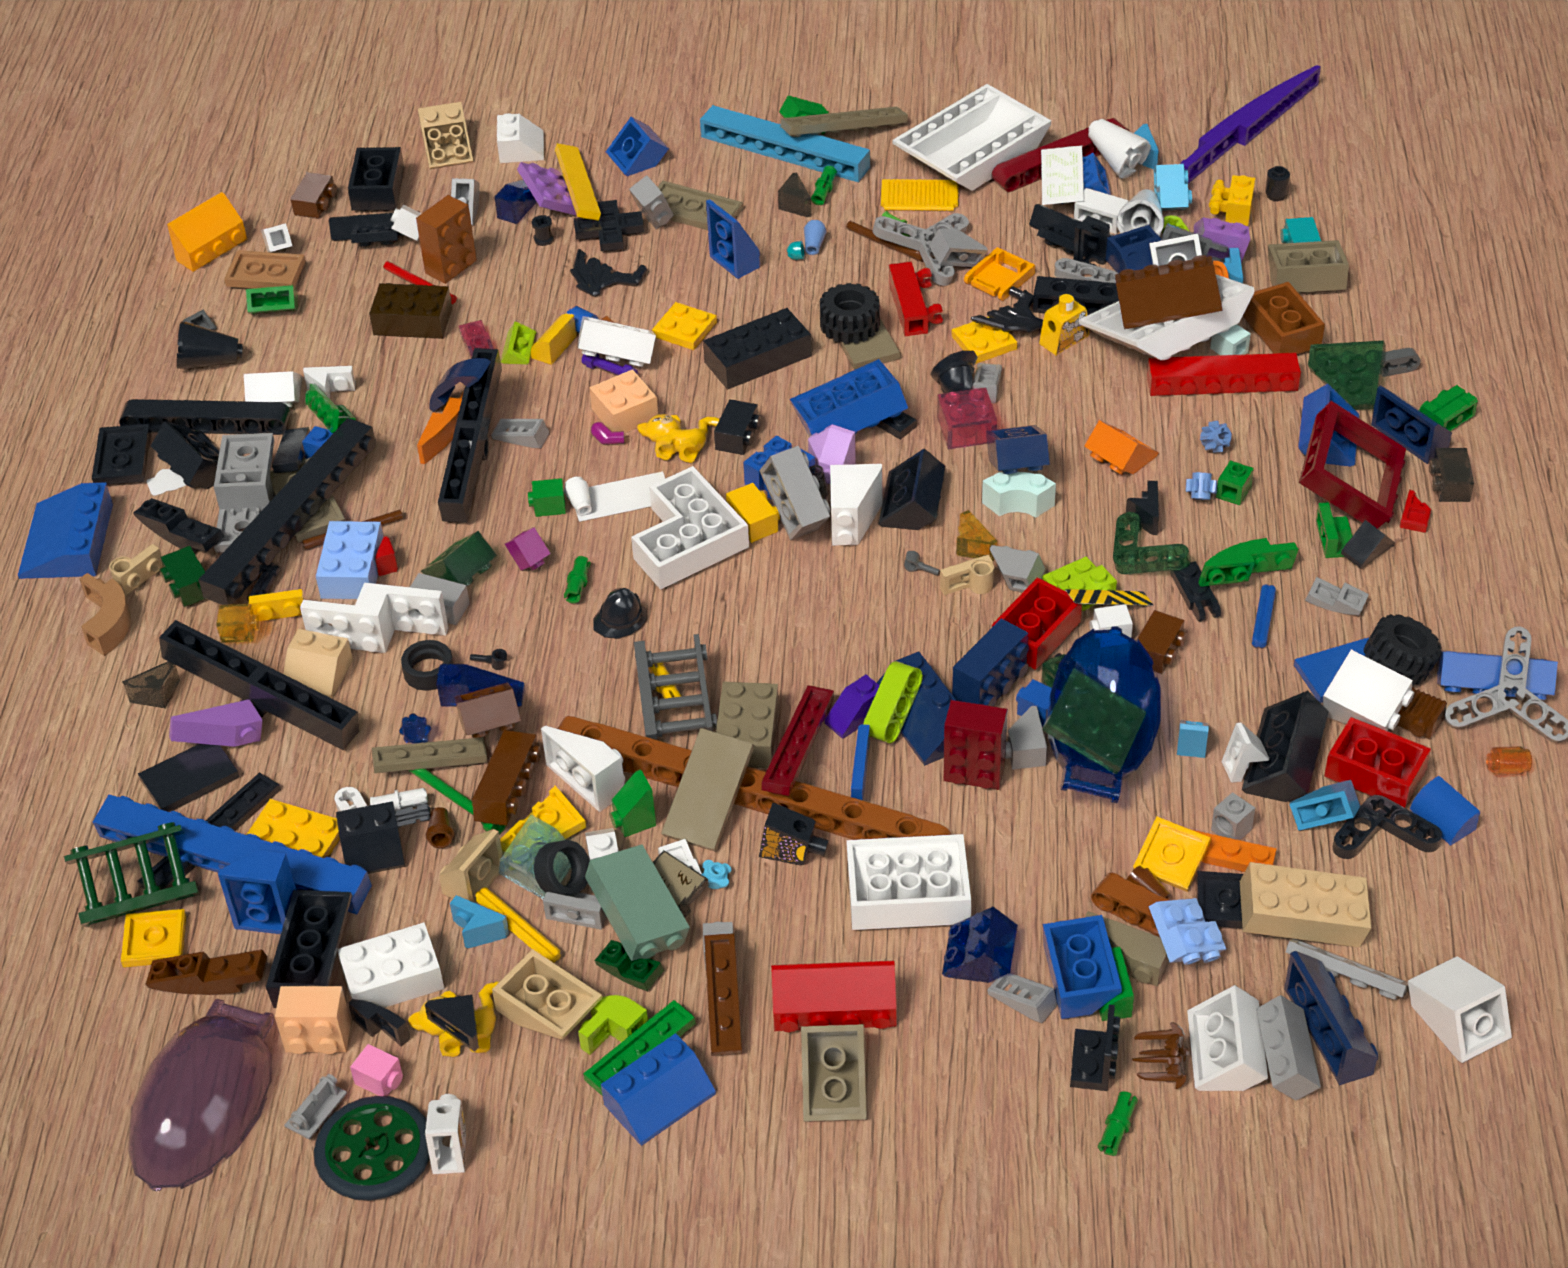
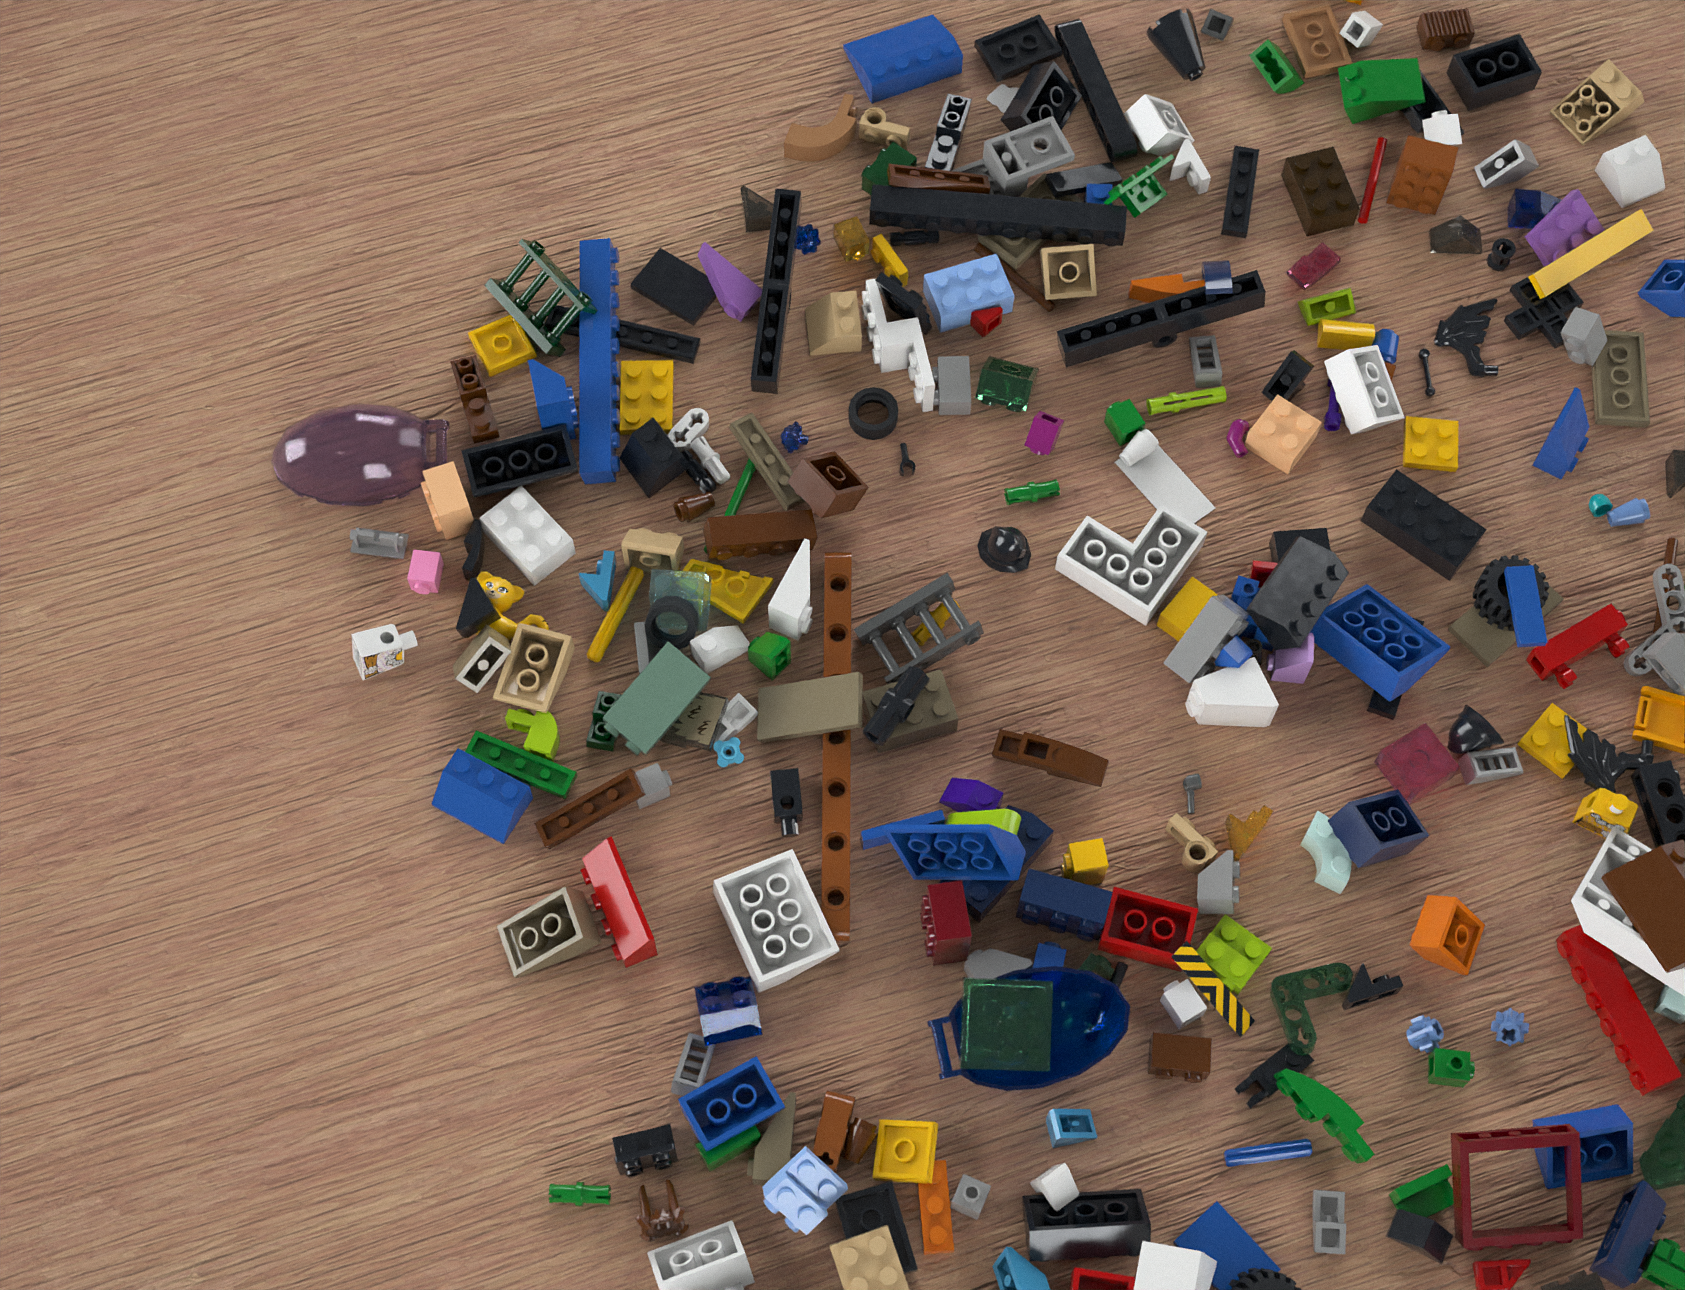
camera: 65 degrees right, 20 degrees up
(223, 537) = (937, 179): none -> reddish brown plate
(340, 585) = (902, 302): none -> black plate
(342, 243) = (1380, 87): none -> green slope
(374, 359) = (1240, 192): none -> black plate
(377, 485) = (1068, 272): none -> tan slope
(382, 1182) = (354, 569): dark green wedge -> none
(464, 678) = (860, 457): clear blue slope -> none
(507, 252) = (1455, 237): none -> clear smoke slope
(511, 1036) = (481, 658): none -> dark tan brick
(557, 436) = (1157, 405): none -> lime pin
(574, 382) = (1289, 377): none -> black slope
(601, 305) = (1424, 354): none -> black hinge
(670, 438) = (1263, 487): yellow animal -> none
(744, 451) = (1261, 571): none -> red tile
(747, 714) = (896, 705): none -> black piece
(787, 423) = (1296, 593): none -> black slope
(797, 740) = (901, 762): dark red plate -> none
(824, 475) = (1234, 654): none -> blue slope
(840, 640) = (1051, 756): none -> reddish brown slope
(872, 298) = (1525, 606): none -> blue tile
(913, 492) = (1283, 750): black slope -> none
(914, 710) = (957, 851): none -> blue slope
(956, 637) = (1085, 862): none -> yellow brick

